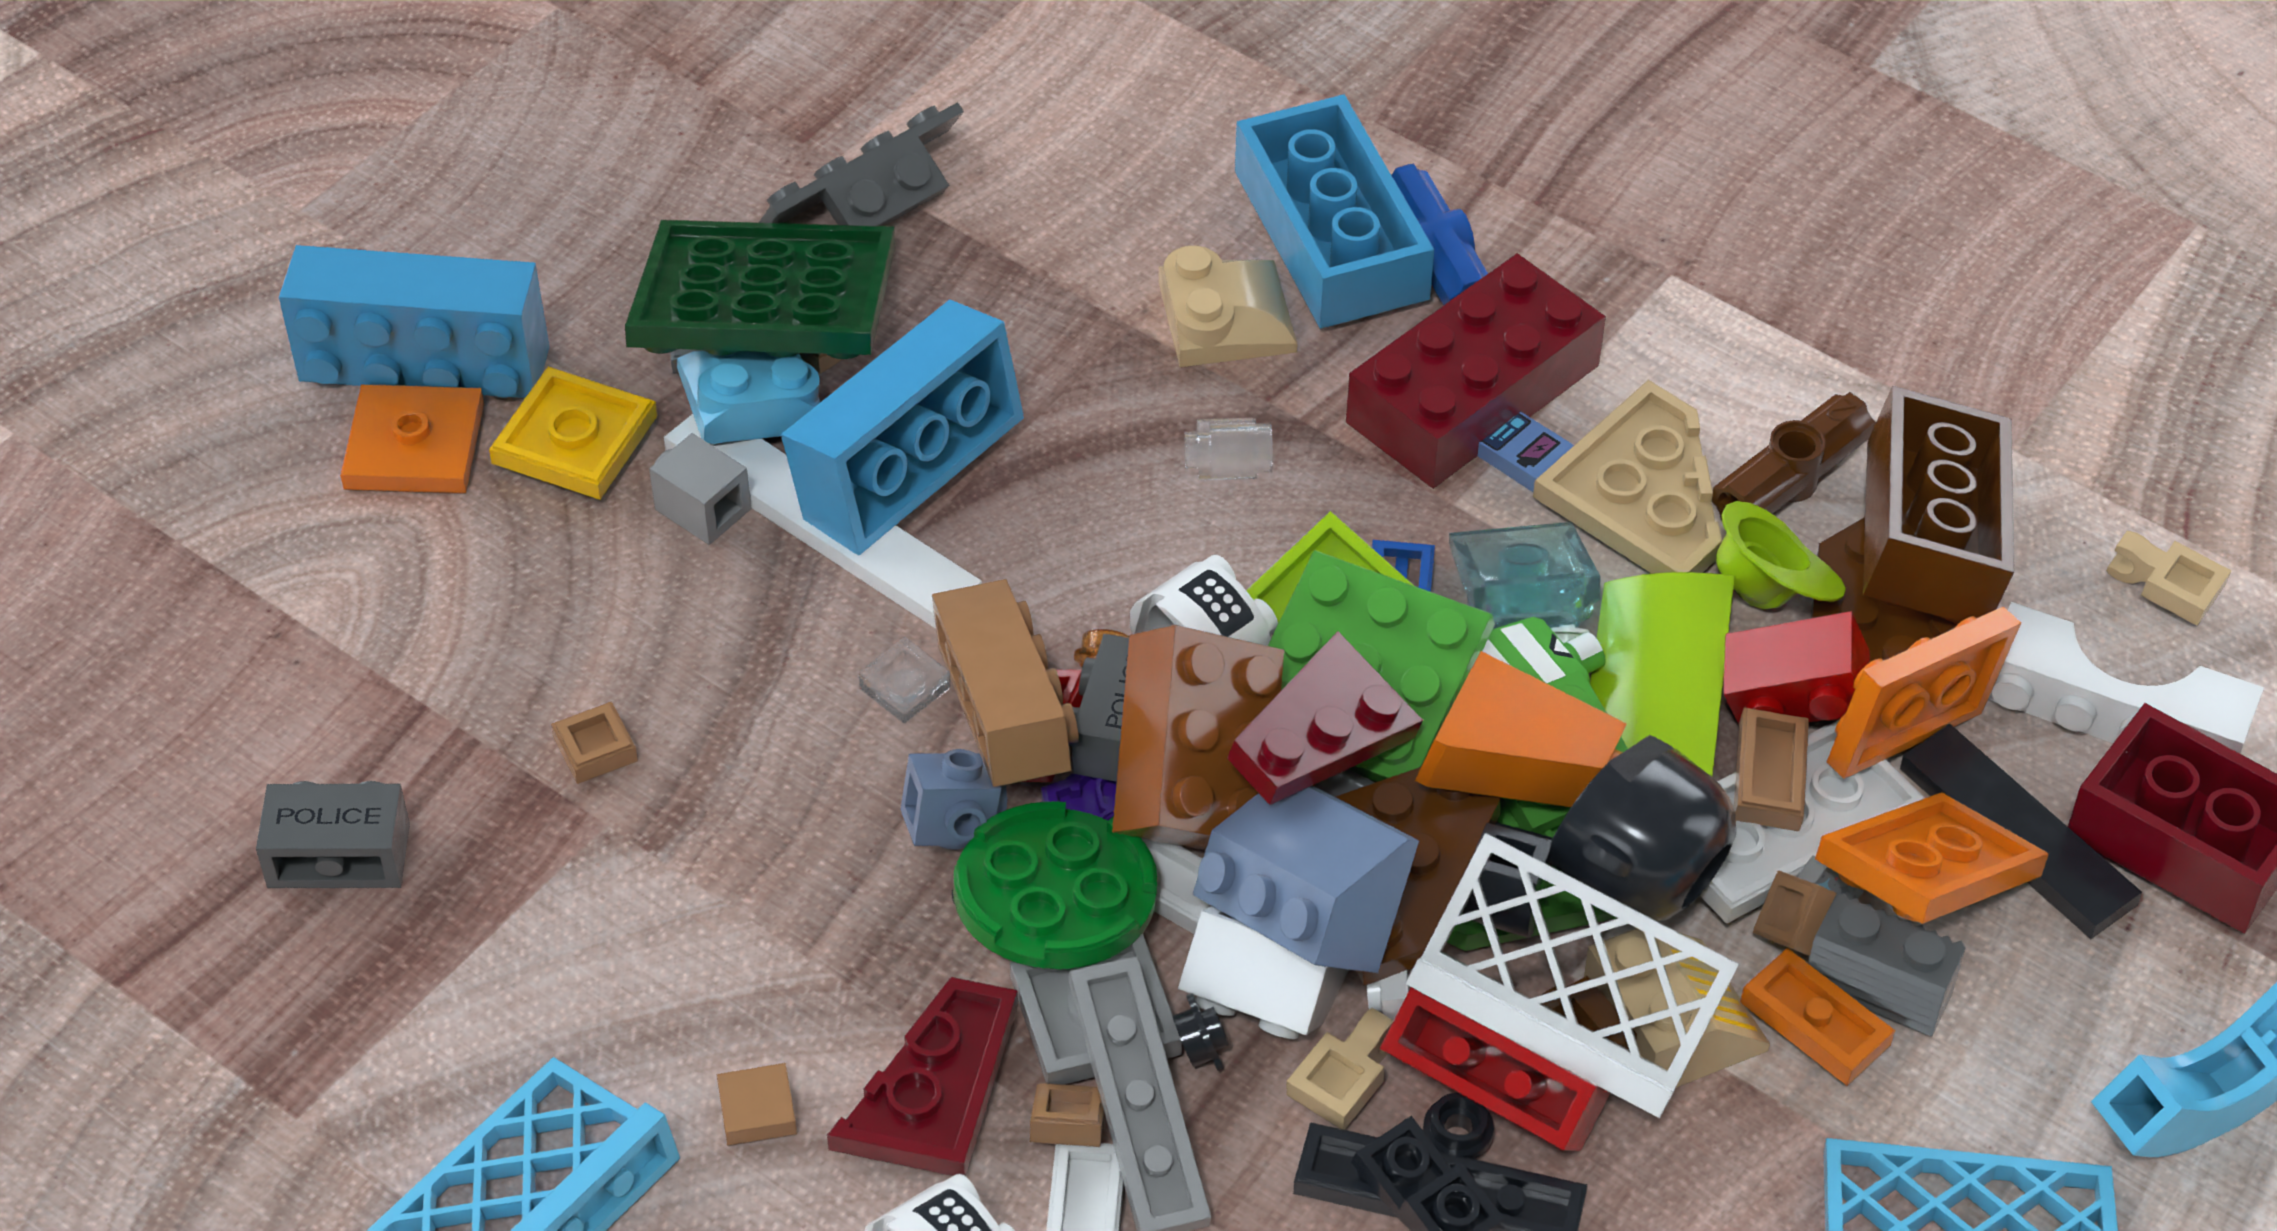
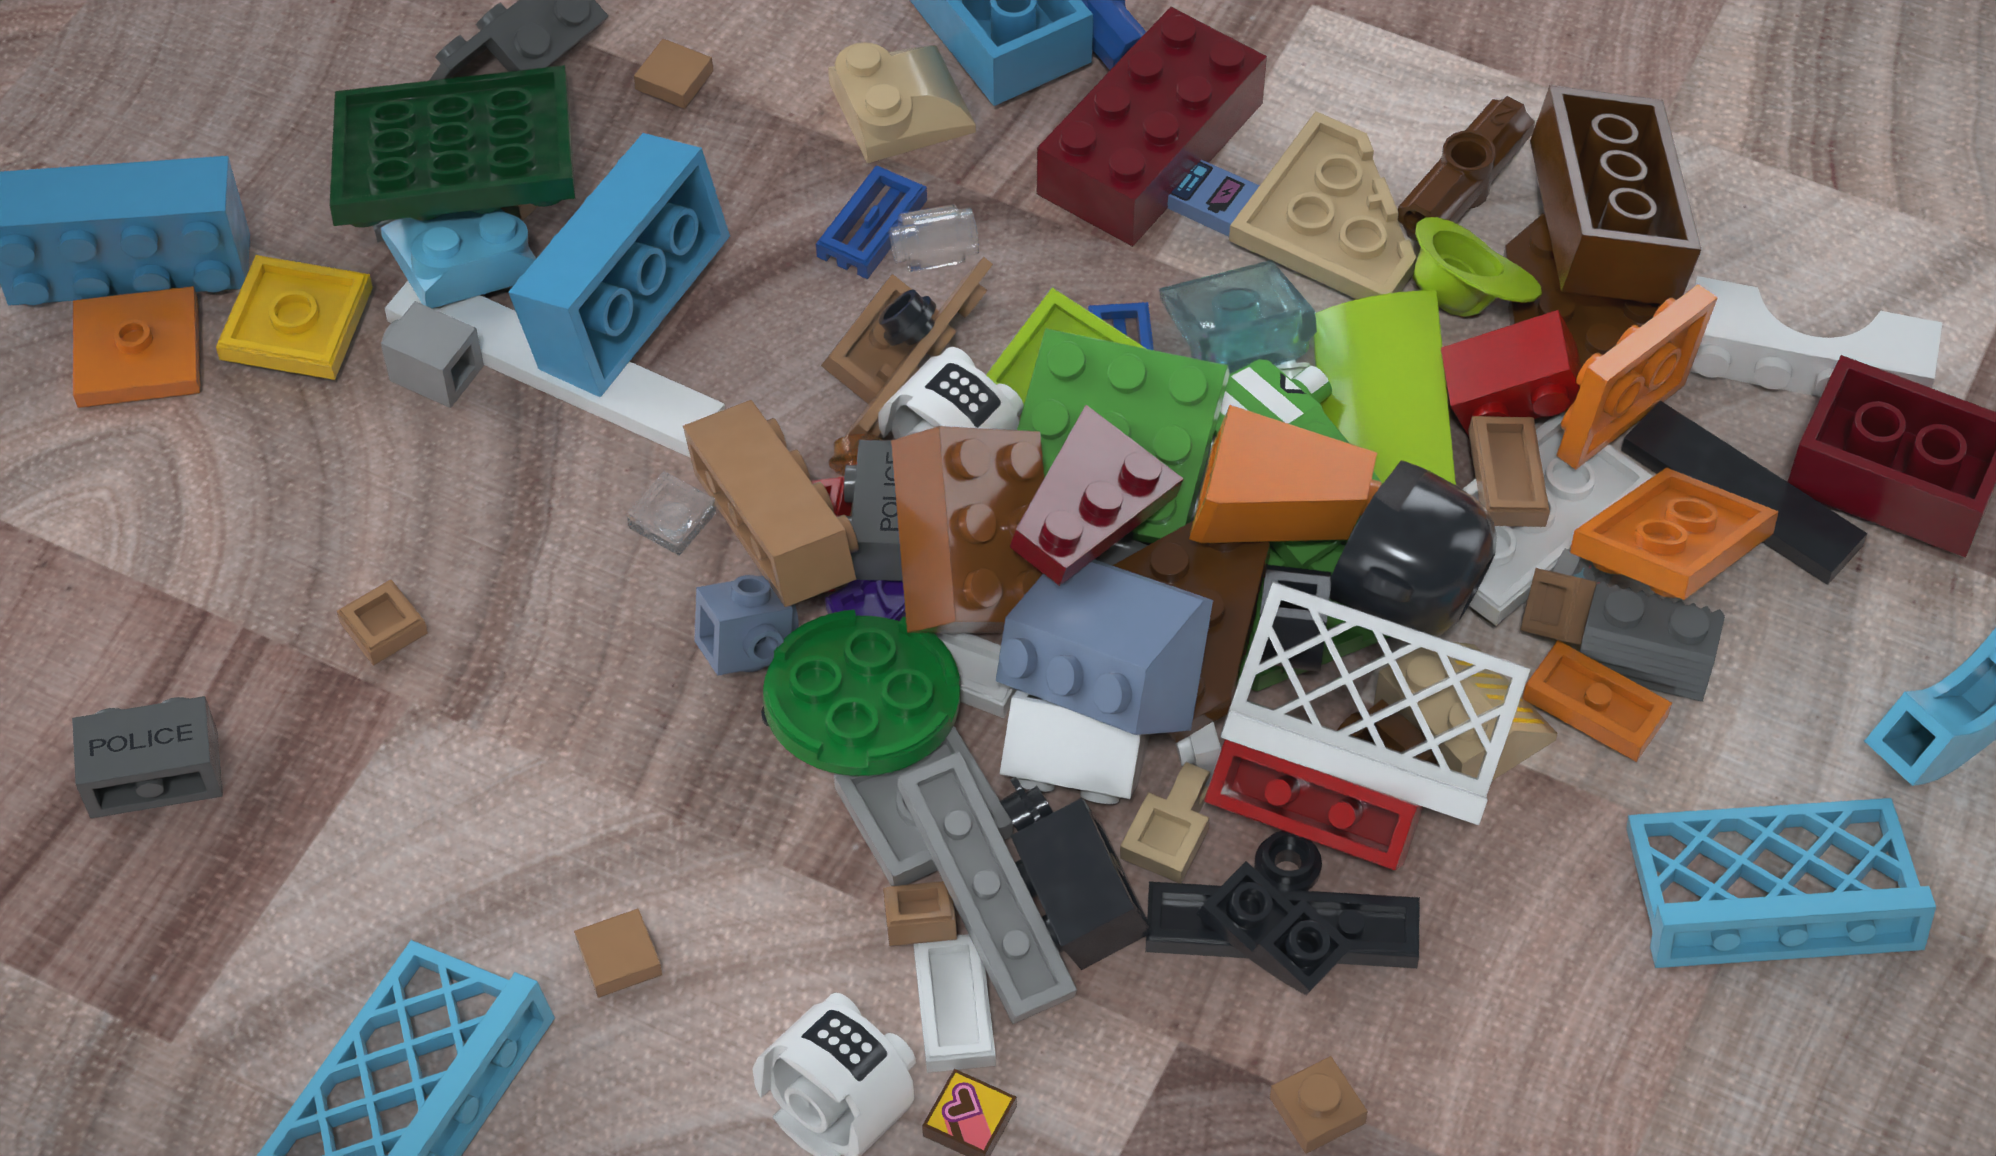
camera: 10 degrees left, 5 degrees up
(937, 1086) = (788, 908): dark red wing -> none
(1002, 250) = (673, 73): none -> medium nougat tile
(1166, 443) = (851, 254): none -> blue tile
(1166, 539) = (879, 370): none -> medium nougat bracket
(1181, 522) = (908, 318): none -> black plate
(1236, 1112) = (1079, 884): none -> black brick
(2174, 579) = (1839, 229): tan plate -> none

